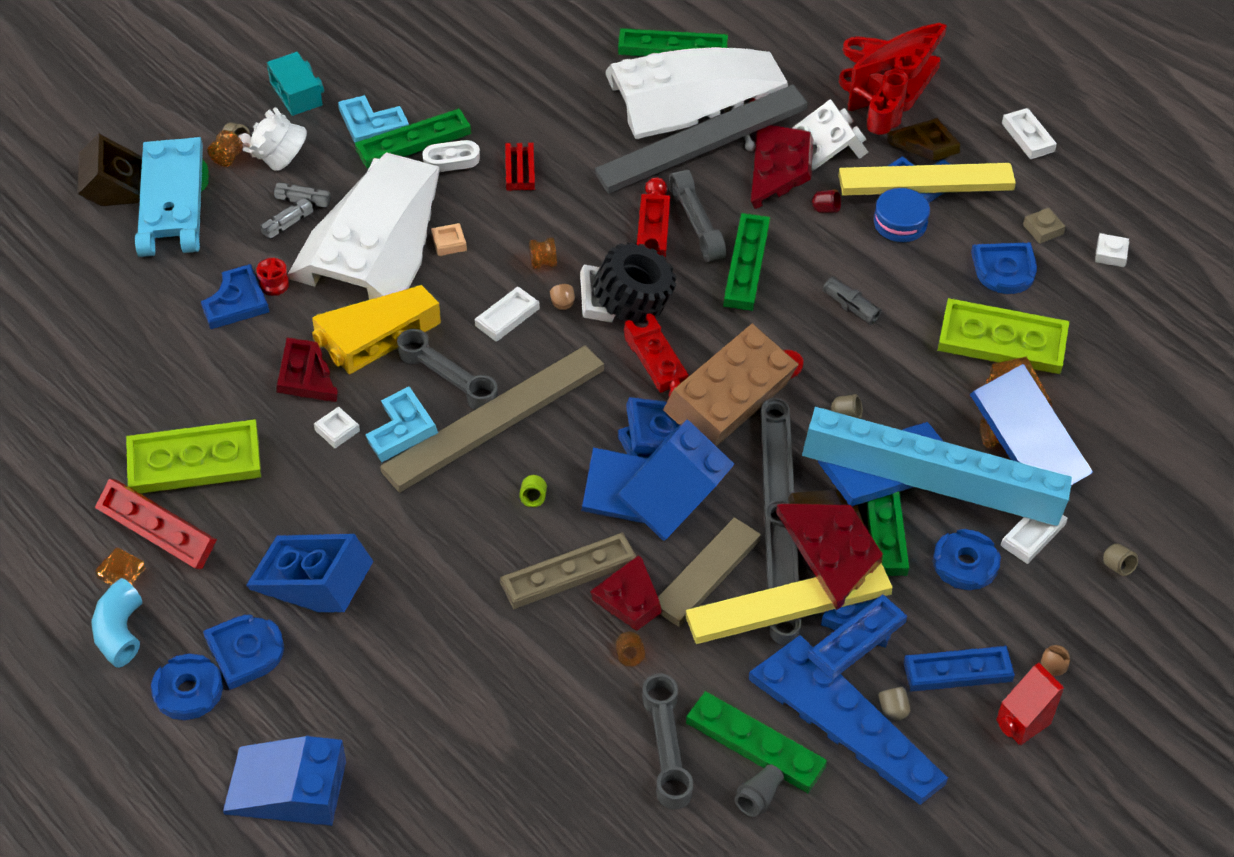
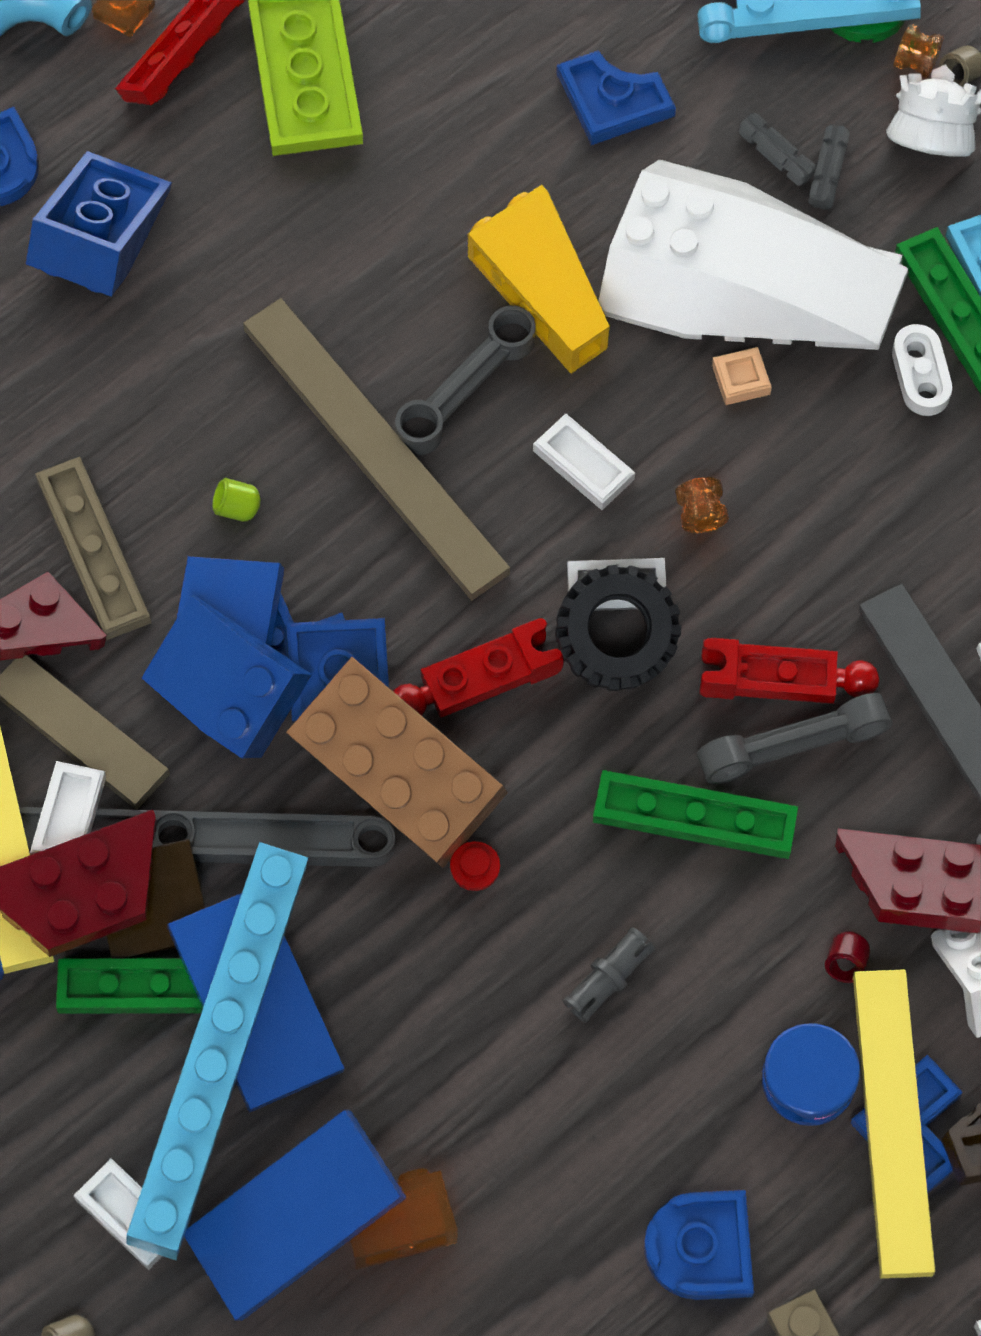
camera: 90 degrees right, 15 degrees up
(272, 276) = (647, 126): red wheel -> none
(305, 372) = (460, 192): dark red wing -> none
(336, 427) = (361, 243): white tile -> none
(408, 425) = (350, 330): medium azure plate -> none
(519, 151) = (910, 467): red tile -> none
(562, 296) = (610, 537): medium nougat hinge -> none
(773, 564) = (68, 805): none -> white tile
(848, 405) = (387, 943): dark tan piece -> none
(966, 575) = (89, 1132): blue tile -> none
(1003, 335) = (529, 1215): lime plate -> none

